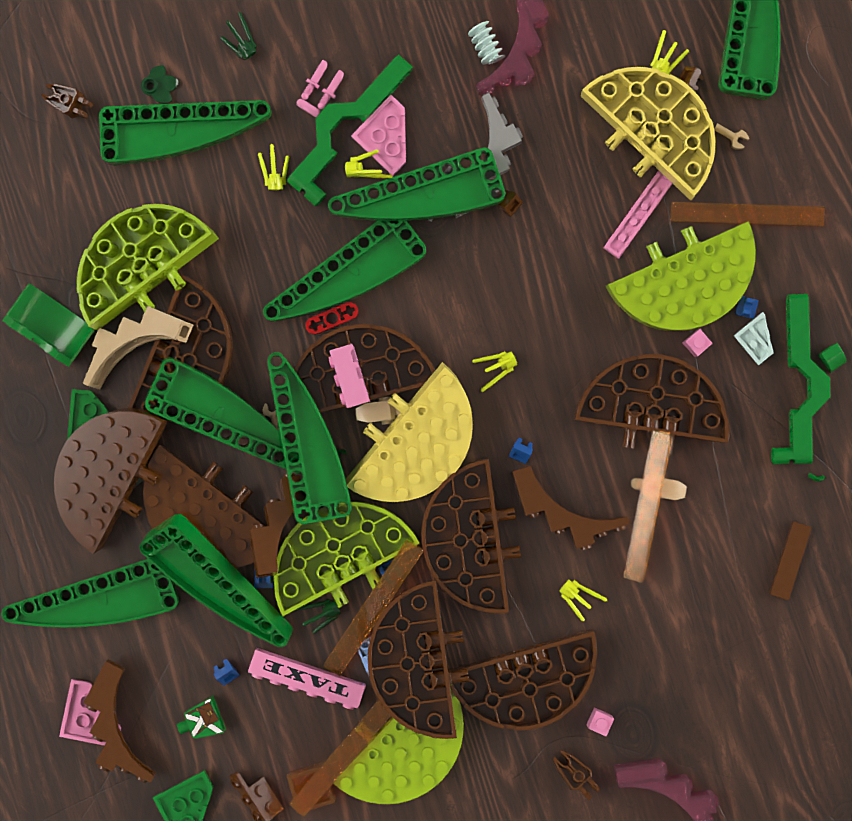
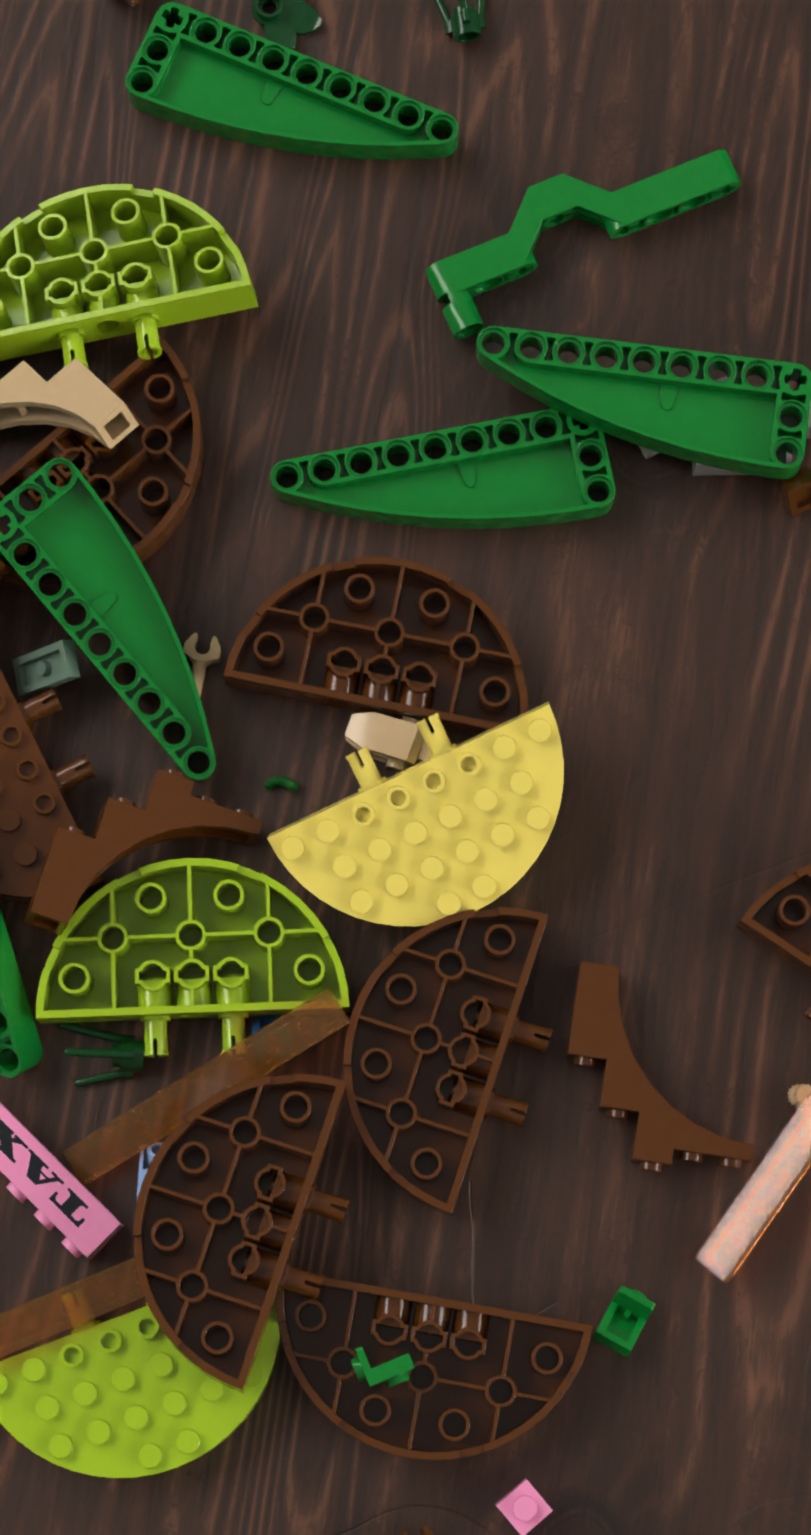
camera: 30 degrees right, 10 degrees down
(206, 454) = (46, 668): none -> sand green plate
(264, 582) = (34, 943): blue tile -> none
(274, 181) = (405, 262): neon yellow plant -> none
(313, 83) = (552, 131): bright pink piece -> none
(318, 459) = (241, 764): green beam -> none
(320, 328) = (377, 529): red beam -> none
(348, 376) = (369, 642): bright pink wedge -> none
(355, 169) = (556, 307): neon yellow plant -> none
(385, 132) = (635, 274): bright pink plate -> none
(506, 361) = (662, 761): neon yellow plant -> none
(516, 695) = (391, 1372): none -> green bracket
(521, 452) = (613, 936): blue tile -> none
(570, 590) = (584, 1234): neon yellow plant -> none
(605, 620) = (623, 1320): none -> green bracket

